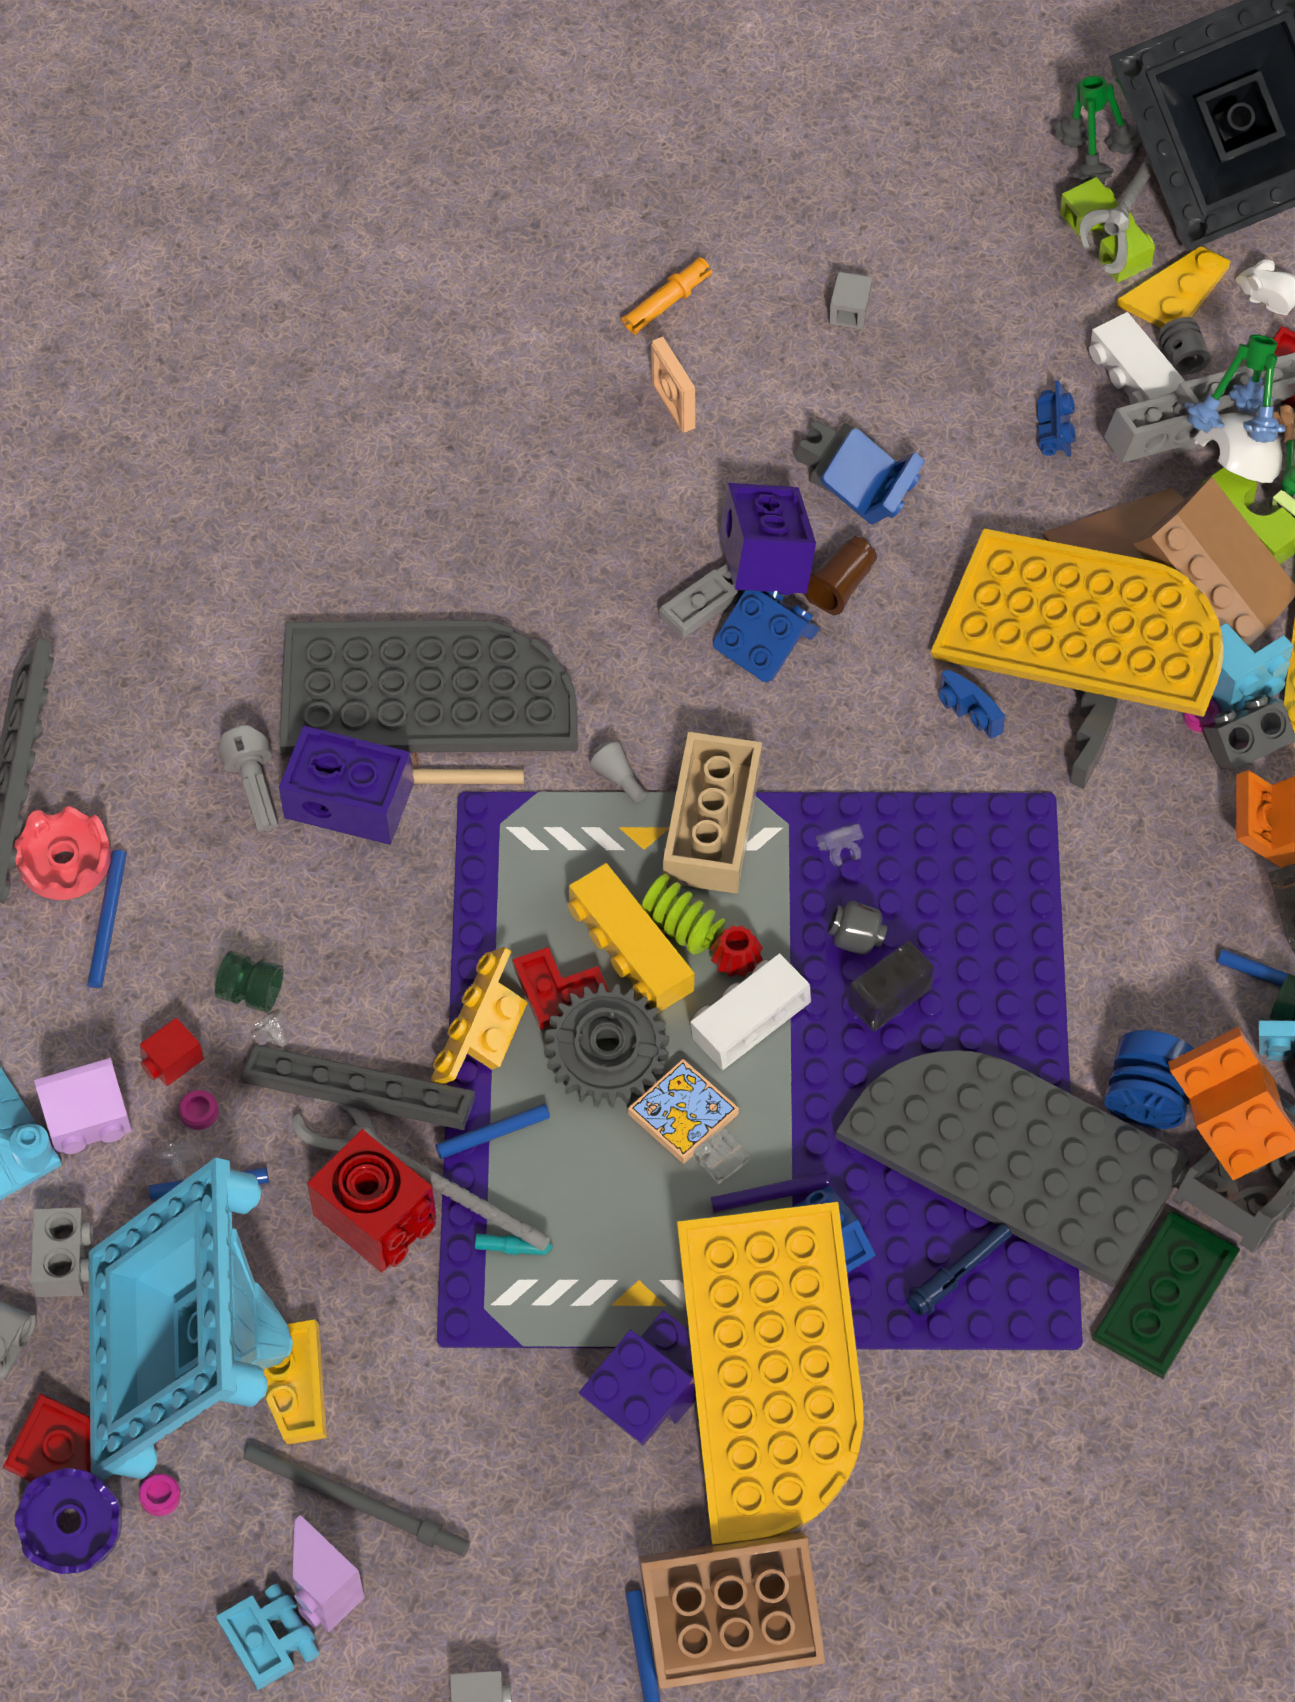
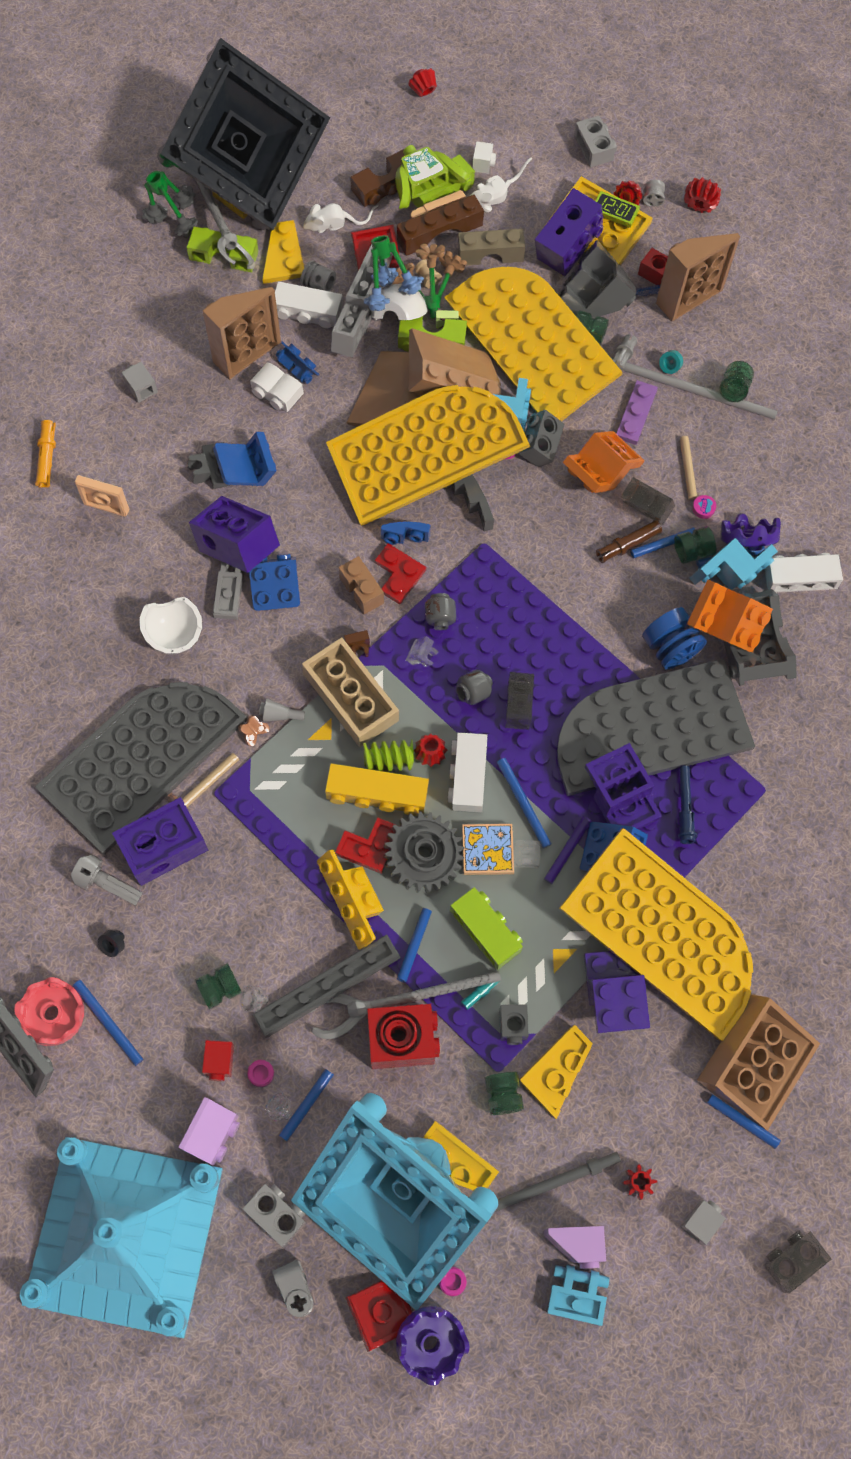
camera: 50 degrees left, 10 degrees up
(194, 843) = (111, 943): none -> black tile
(421, 1358) = (504, 1093): none -> clear green wheel
(456, 1603) = (634, 1188): none -> red gear
(501, 1400) = (555, 1071): none -> yellow wing
(505, 1288) = (516, 1012): none -> dark grey brick
(570, 763) = (252, 729): none -> nougat piece
(587, 1184) = (486, 928): none -> lime brick
(596, 579) = (171, 625): none -> white cylinder
(777, 1101) = (524, 803): none -> blue bar
(784, 771) = (358, 641): none -> reddish brown tile
(840, 575) = (283, 521): reddish brown plant -> none
(855, 716) = (366, 590): none -> medium nougat brick
(897, 1177) = (623, 788): none -> dark purple bracket
(909, 815) = (440, 611): none -> dark grey head
(925, 747) = (404, 572): none -> red plate
(1000, 428) = (276, 387): none -> white brick
(1015, 326) = (242, 329): none -> medium nougat slope
(1166, 1294) = (774, 731): dark green tile -> none
(1230, 936) = (621, 545): none -> reddish brown pin

